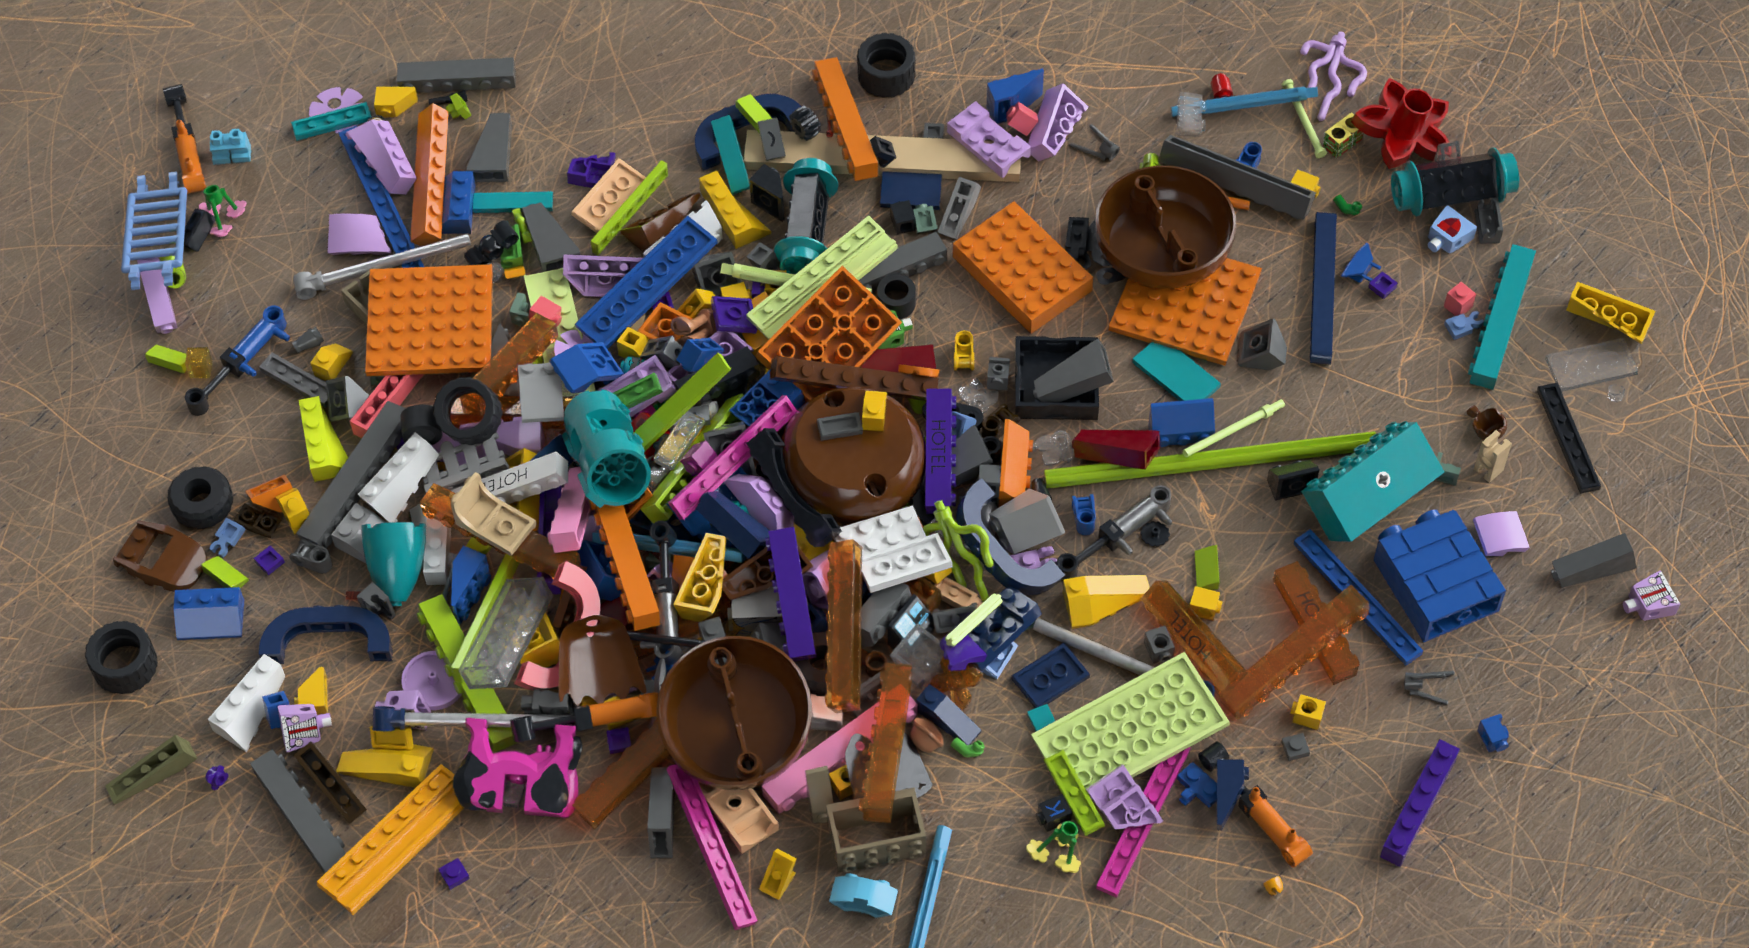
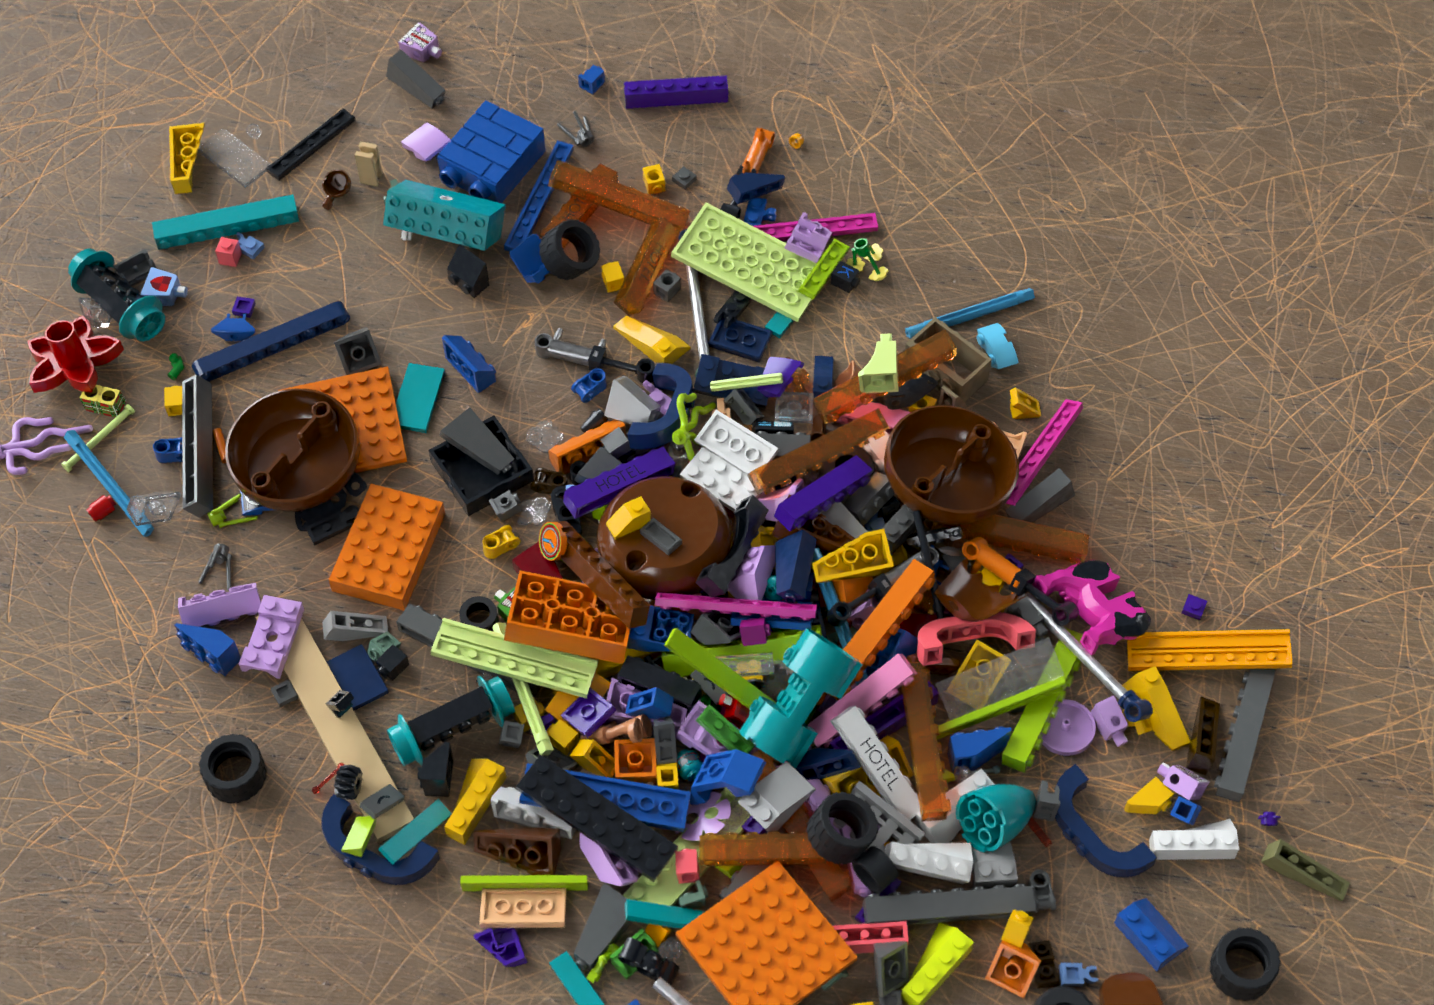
camera: 125 degrees left, 0 degrees up
(224, 573) = (1108, 951): lime slope -> none
(269, 560) = (1070, 924): dark purple plate -> none
(489, 517) = (925, 735): tan bracket -> none
(518, 278) = (659, 914): none -> teal tile
(629, 260) = (597, 818): none -> black plate
(845, 119) = (317, 761): orange brick -> none
(883, 722) = (882, 370): none -> yellowish green hips
(973, 750) = (837, 353): bright green arm -> none
(1022, 118) = (231, 625): coral brick -> none
(1085, 680) = (732, 309): none -> black hinge
(1117, 447) = (521, 387): dark red slope -> none
(1155, 533) = (574, 336): black piece -> none
(1207, 567) = (579, 291): lime slope -> none
(1208, 460) = (487, 336): lime axle -> none
(1229, 562) = (584, 242): none -> black tyre
(1264, 412) = (416, 323): yellowish green bar -> none
(1270, 543) = (528, 259): none -> blue bracket

